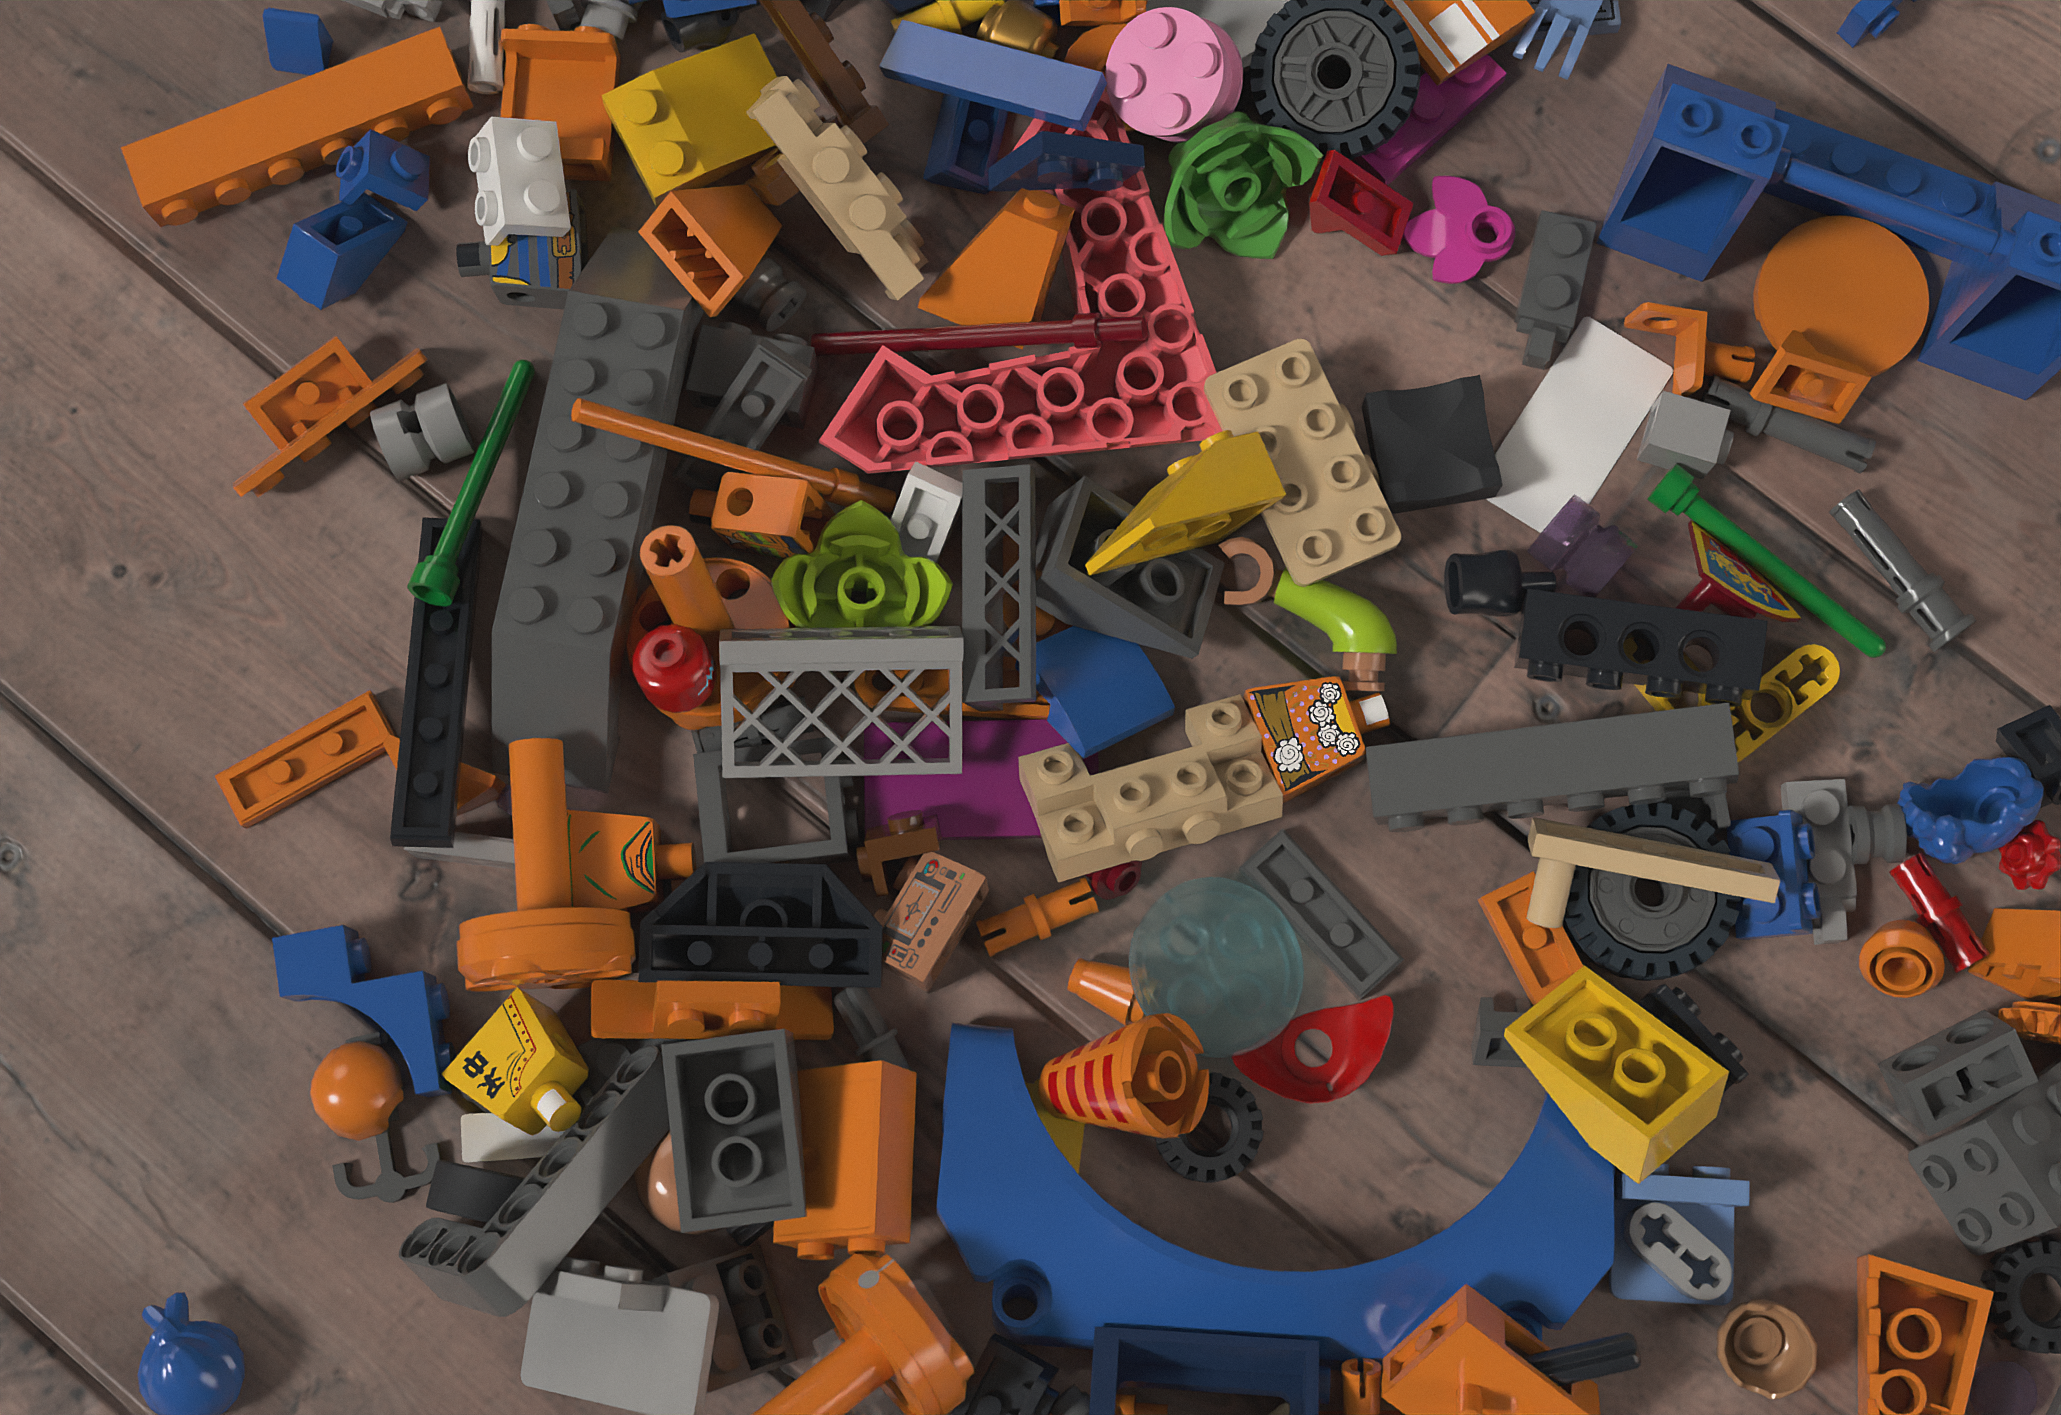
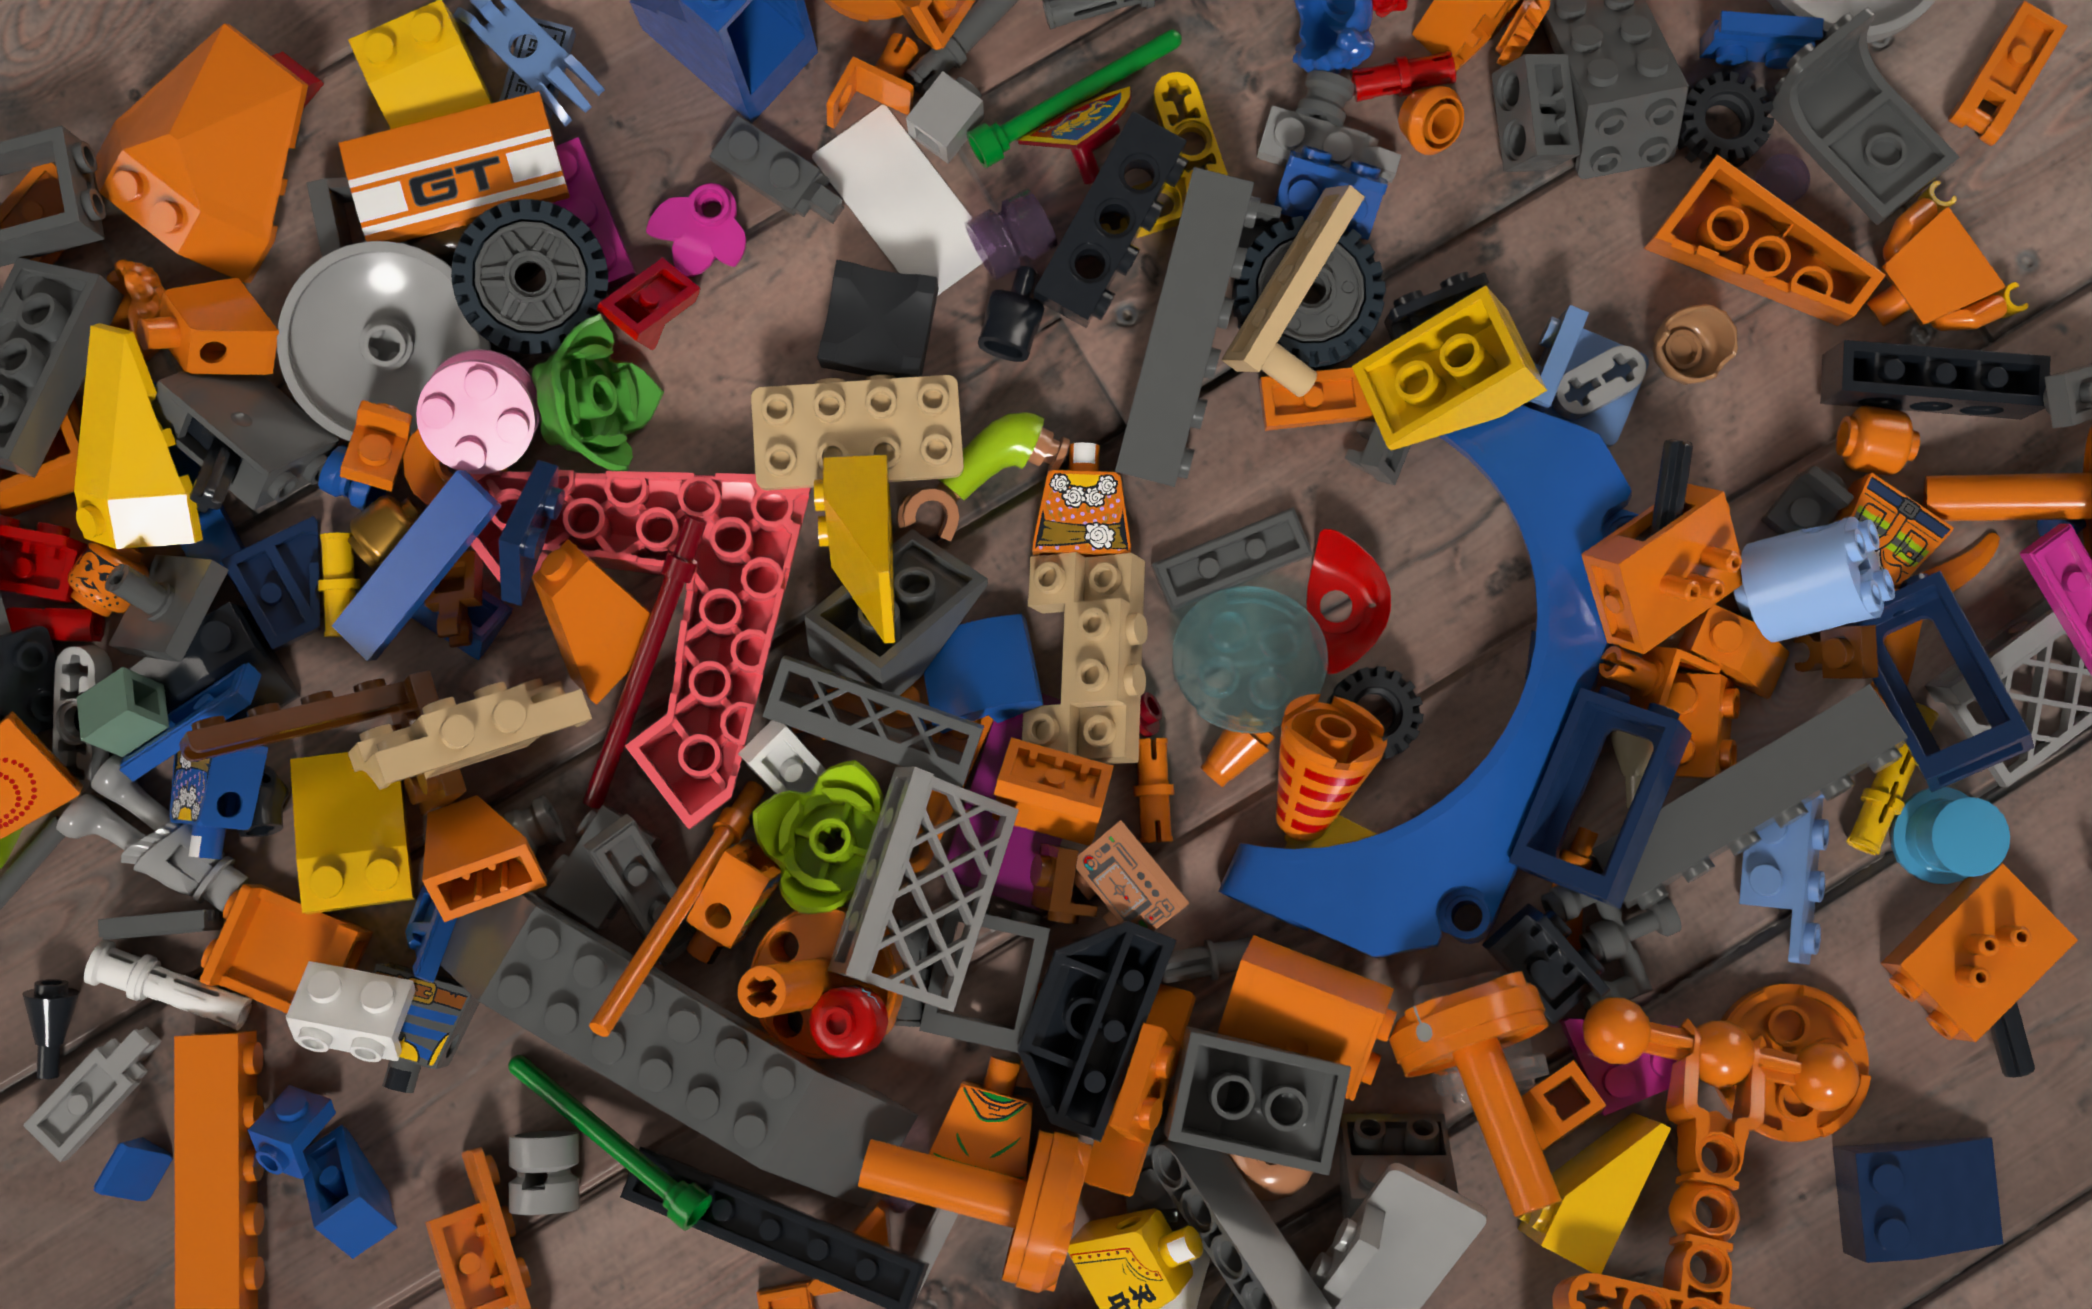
camera: 75 degrees left, 5 degrees up
(617, 232) = (427, 936): none -> blue tile
(976, 124) = (453, 595): none -> reddish brown plate
(995, 797) = (1053, 790): none -> orange bracket

